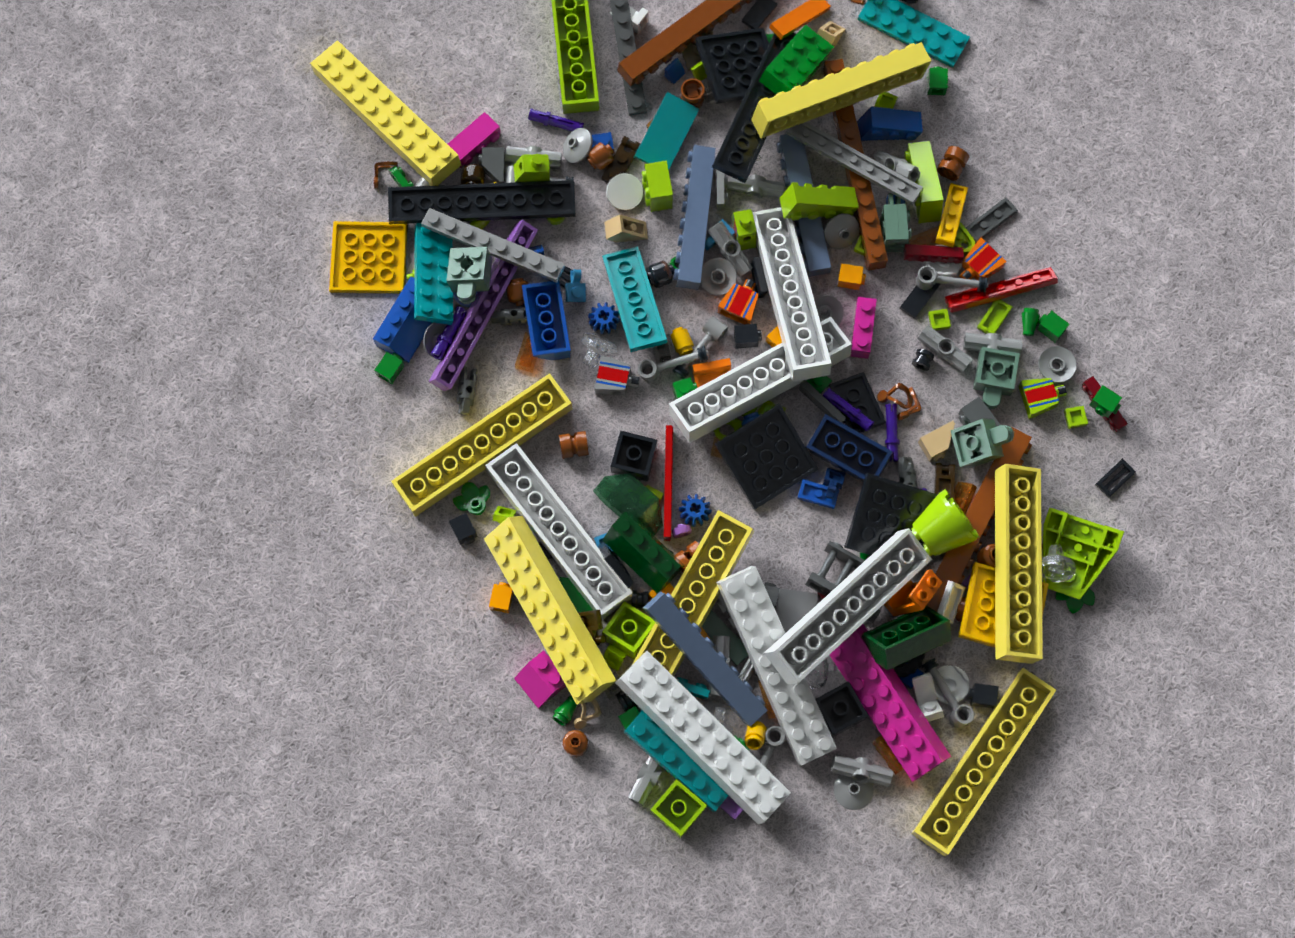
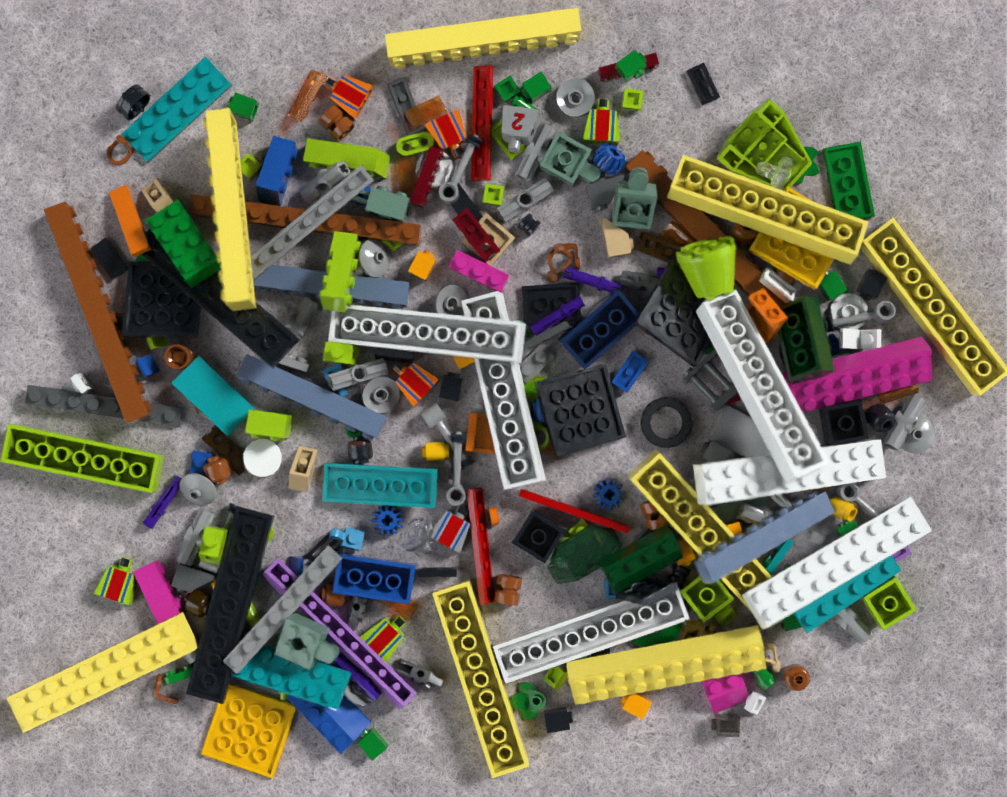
camera: 75 degrees left, 15 degrees up
(470, 104) = (118, 582): none -> torso
(493, 348) = (384, 636): none -> torso
(507, 690) = (726, 725): none -> clear smoke brick
(537, 712) = (754, 702): none -> white plate
(569, 376) = (437, 572): none -> black tile
(607, 407) = (481, 545): none -> red tile
(638, 411) = (493, 516): none -> orange tile
(681, 530) = (624, 513): medium lavender tile -> none
(683, 387) = (488, 465): green brick -> none
(793, 526) = (685, 416): none -> black tyre
(796, 405) = (535, 363): none -> light grey plate
(834, 480) = (621, 352): dark blue plate -> none
(857, 744) = (880, 417): none -> black head
(895, 328) = (497, 233): none -> tan plate
(896, 312) = (475, 234): none -> dark red plate
(951, 215) = (391, 144): yellow tile -> none
(968, 131) = (307, 95): none -> clear orange plate
(969, 657) = (832, 286): none -> green brick
(983, 167) = (349, 94): none -> torso
(992, 236) = (425, 112): none -> clear orange plate
(1011, 319) = (519, 126): none -> light grey torso
(1011, 410) = (609, 159): none -> blue gear
(1042, 302) = (507, 88): none -> green plate
(1076, 644) = (848, 180): none -> green tile
(1080, 264) = (483, 37): none -> light yellow brick

